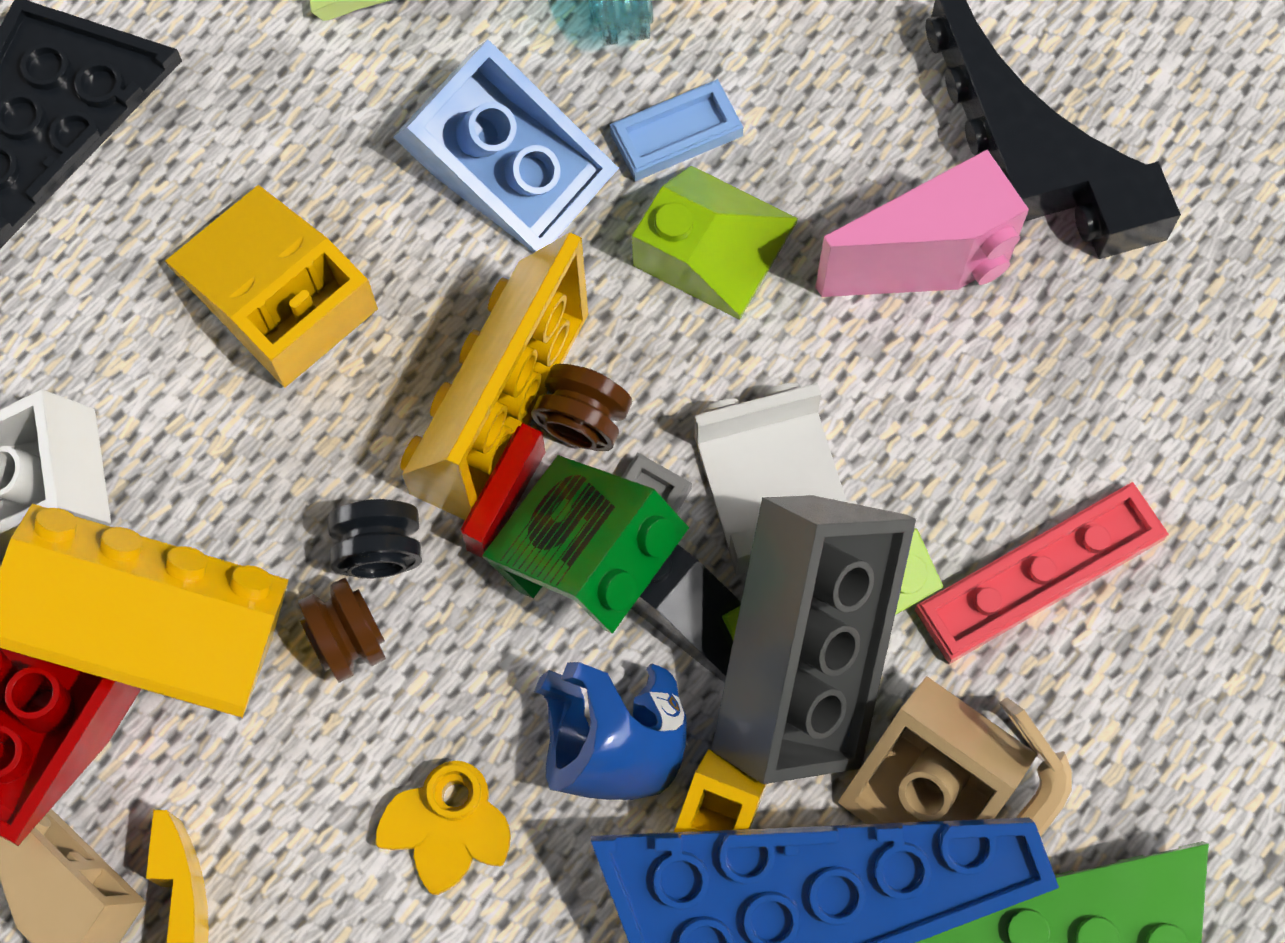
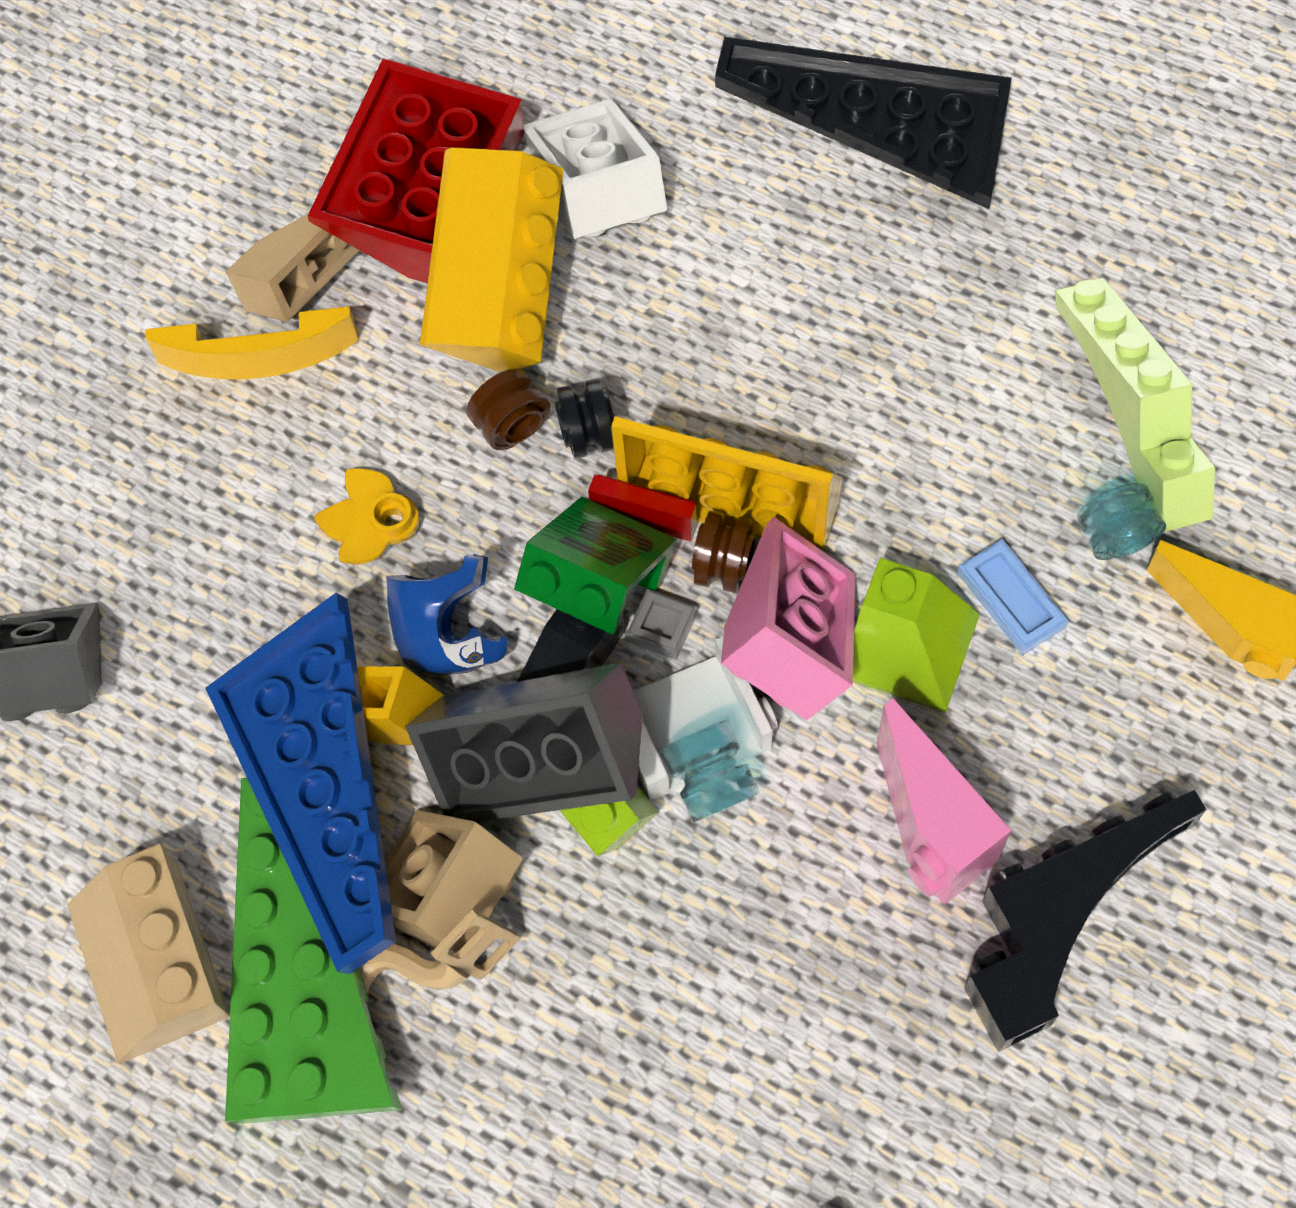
camera: 85 degrees right, 5 degrees down
(275, 283) = (792, 309): yellow slope -> none
(506, 148) = (954, 458): light blue slope -> none
(693, 340) = (793, 623): none -> bright pink slope
(852, 459) = (709, 770): none -> clear light blue wheel
(1040, 572) = (642, 961): coral tile -> none

